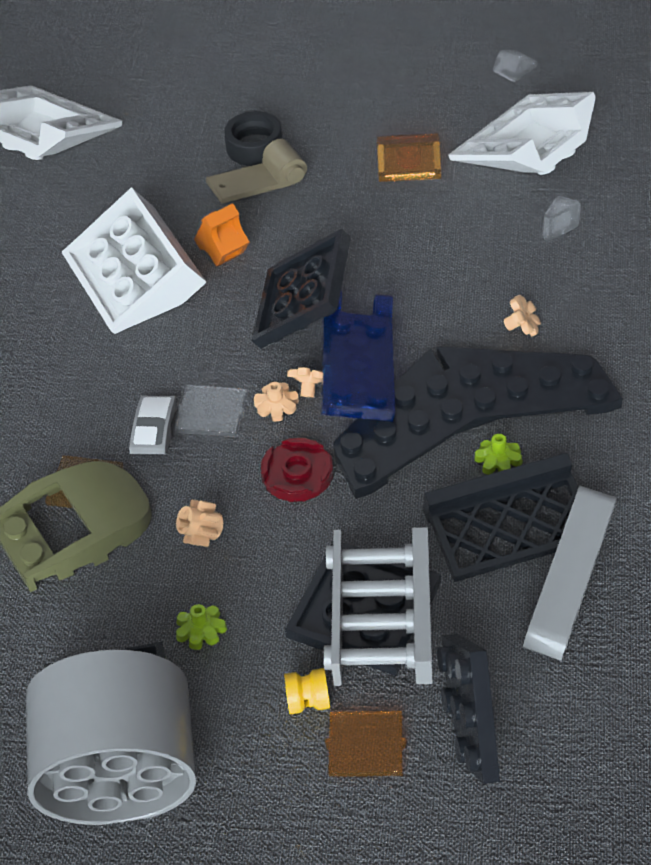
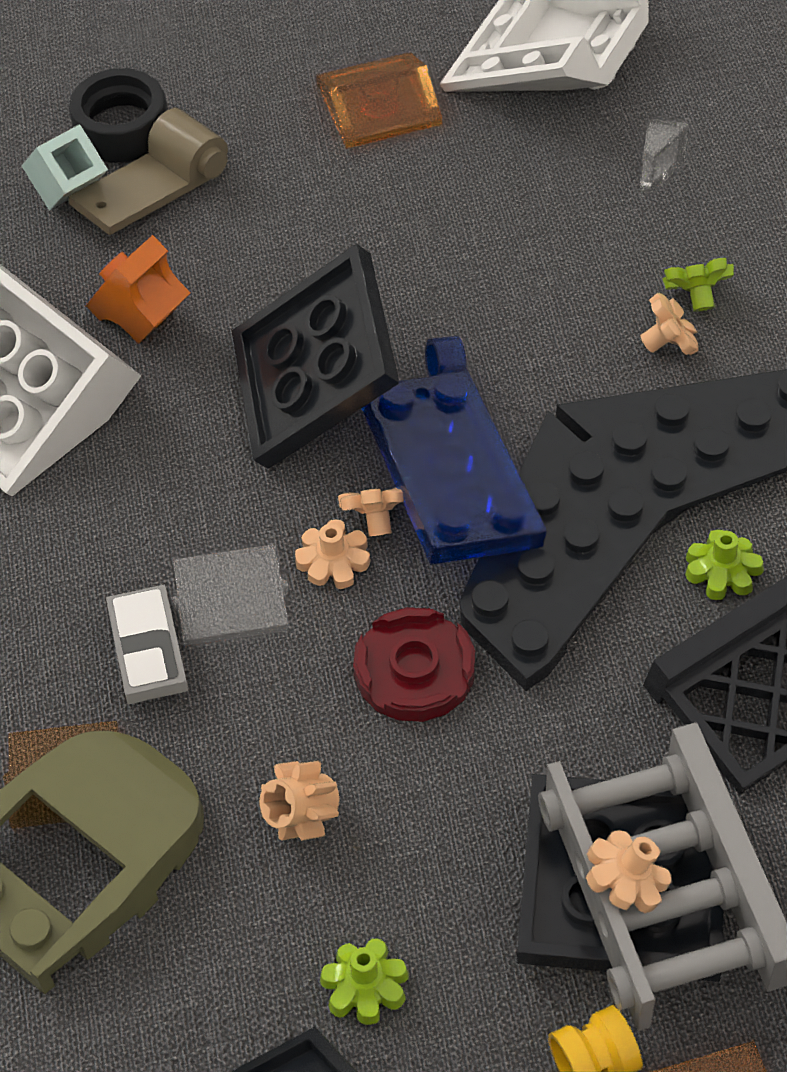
camera: 20 degrees left, 5 degrees up
(207, 159) = (64, 166): none -> light aqua brick
(353, 594) = (628, 871): none -> light nougat plant
(551, 294) = (699, 281): none -> lime plant

